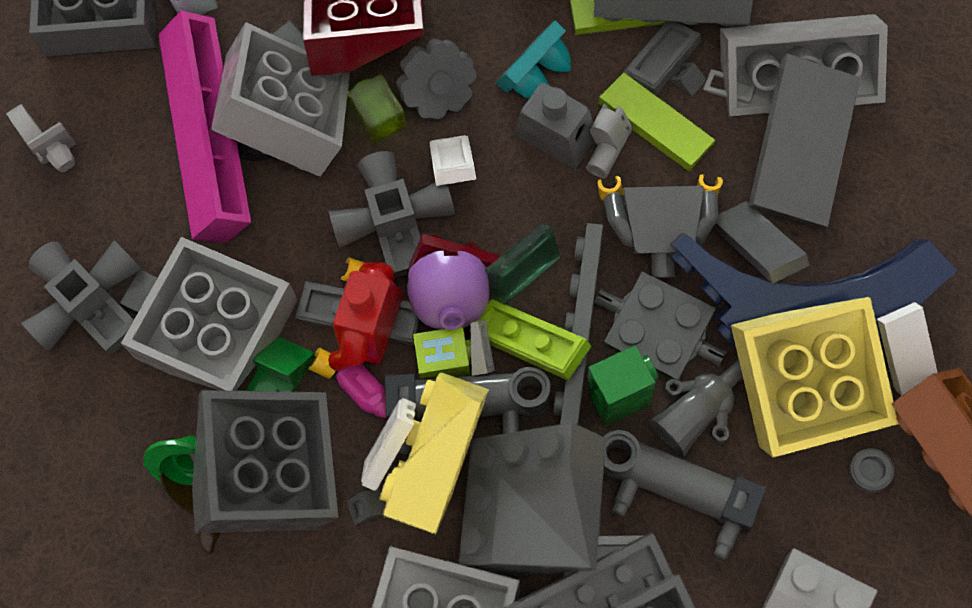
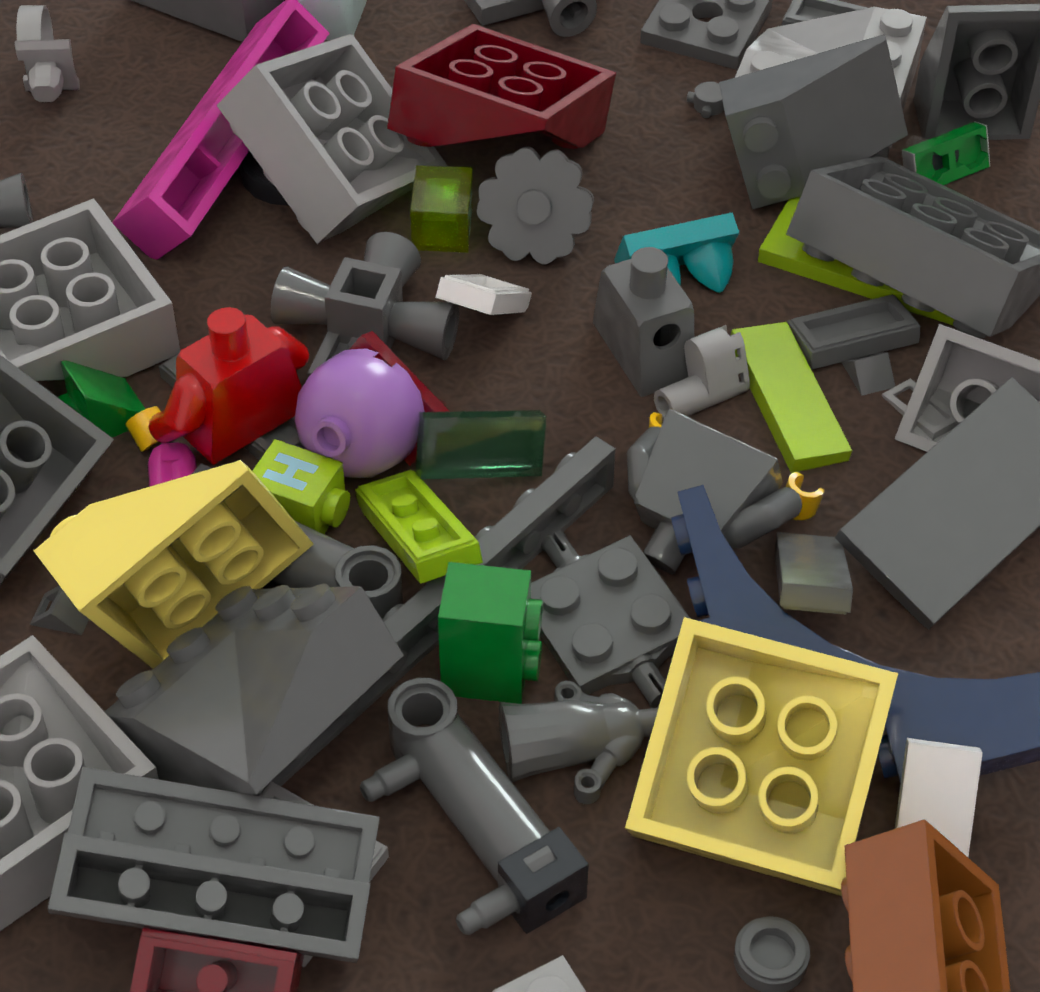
camera: 25 degrees right, 20 degrees down
(480, 349) = (346, 501): light grey piece -> none

